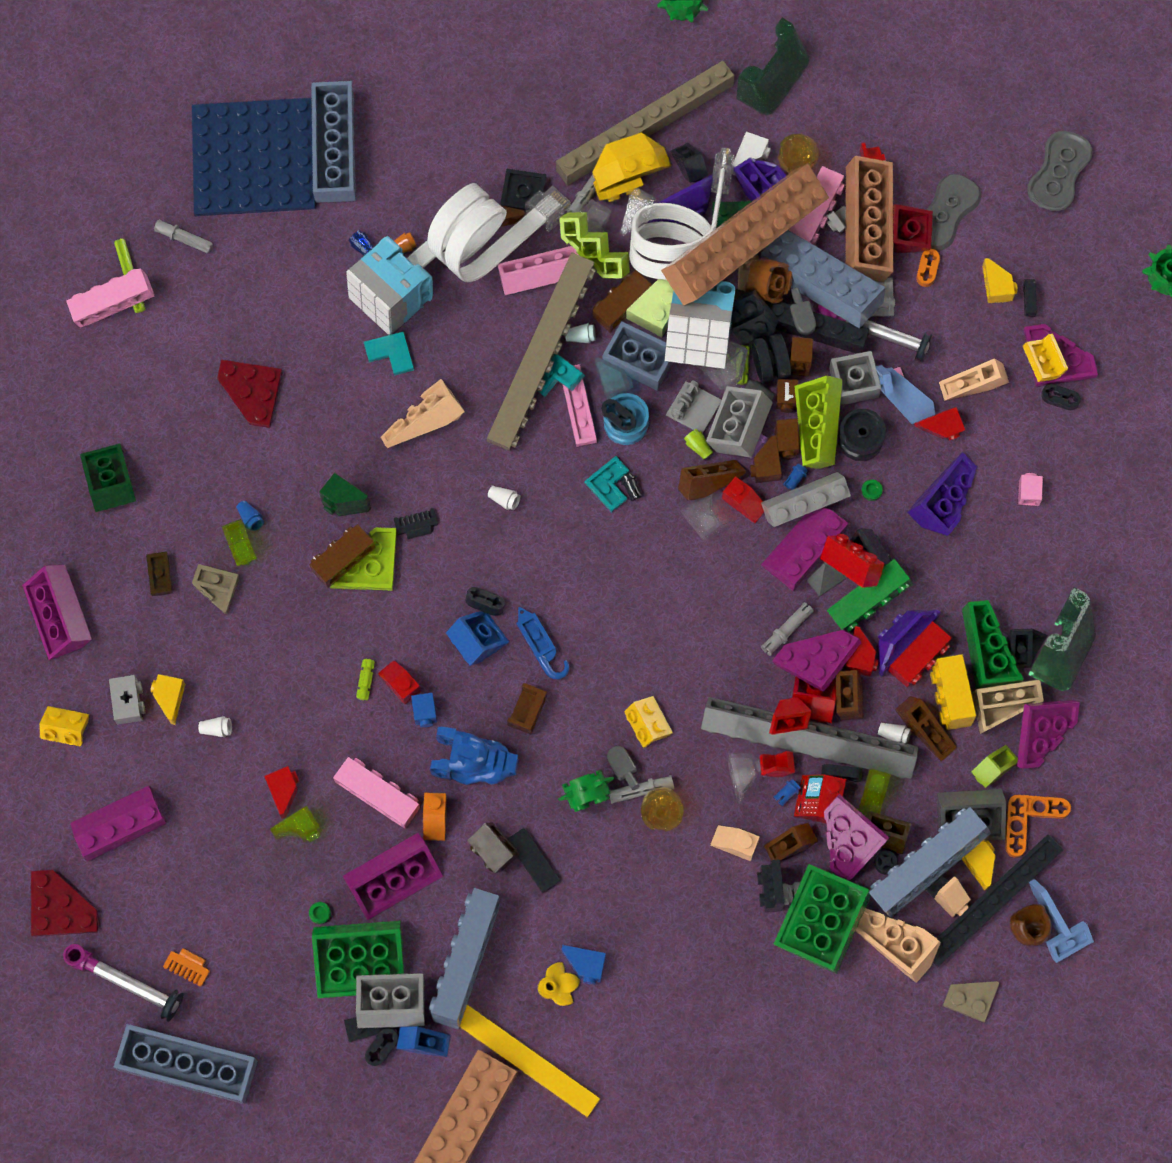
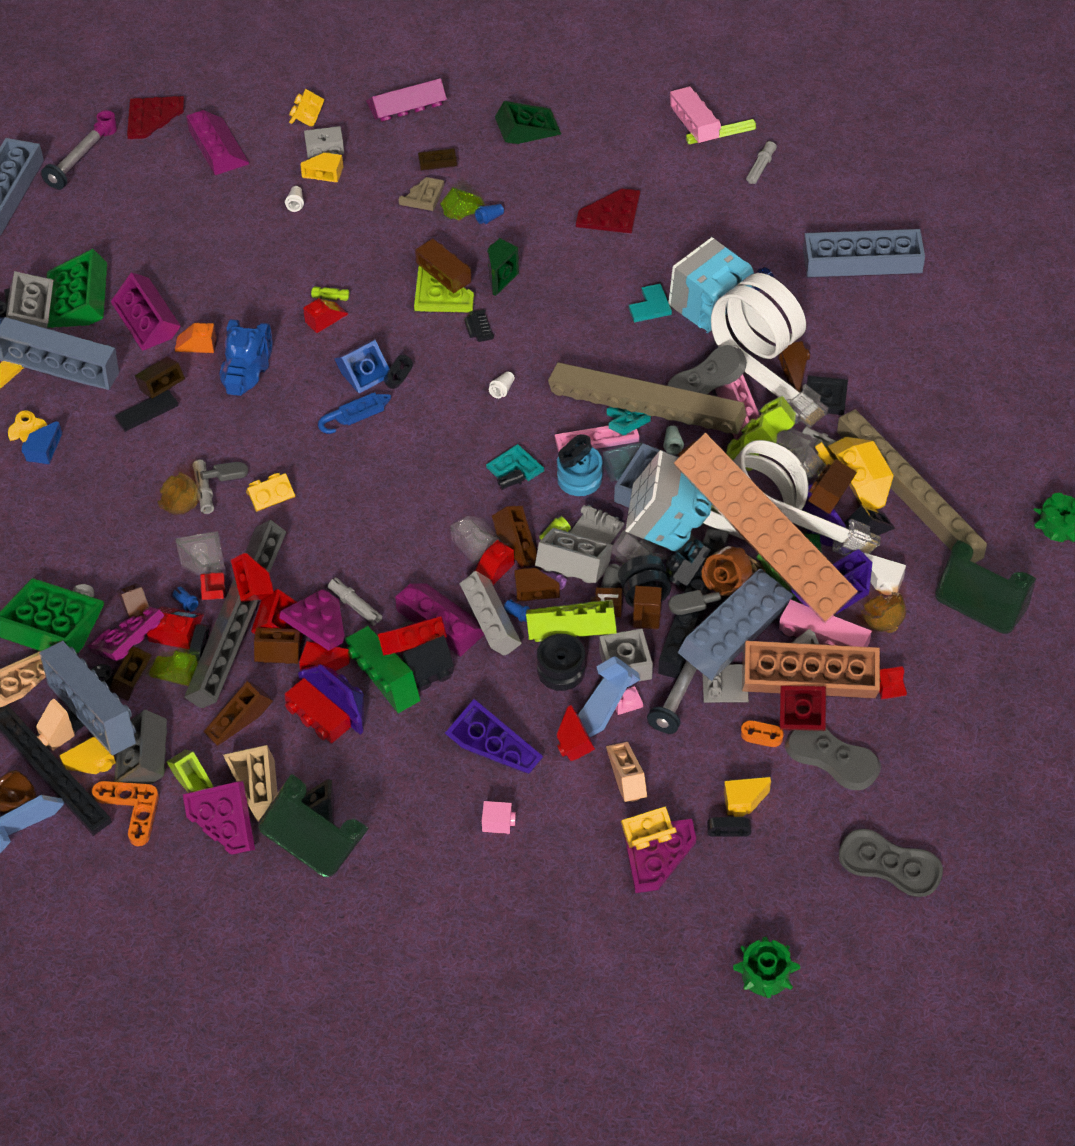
camera: 90 degrees right, 20 degrees down
(191, 962) = (90, 192): orange piece -> none
(252, 157) = (844, 199): dark blue plate -> none
(283, 788) = (231, 240): red slope -> none
(300, 824) = (198, 252): clear neon green arch -> none
(319, 913) = (121, 270): green tile -> none
(376, 792) = (223, 298): bright pink brick -> none
(424, 709) = (296, 330): blue brick -> none
(435, 411) = (586, 329): light nougat wedge -> none
(506, 281) = (719, 369): none -> dark grey plate
(527, 708) = (289, 405): reddish brown panel -> none
(585, 790) = (201, 437): green brick -> none
(672, 180) = (831, 485): none -> reddish brown brick
(735, 841) = (138, 558): light nougat slope -> none
(772, 887) = (91, 573): black plate -> none
(787, 438) = (556, 592): reddish brown slope -> none
(872, 490) = (503, 677): green tile -> none
(895, 732) = (234, 686): white cone -> none
(953, 692) = (276, 727): yellow brick -> none
(988, 647) = (321, 763): green wedge -> none
(1059, 401) = (605, 853): black beam -> none

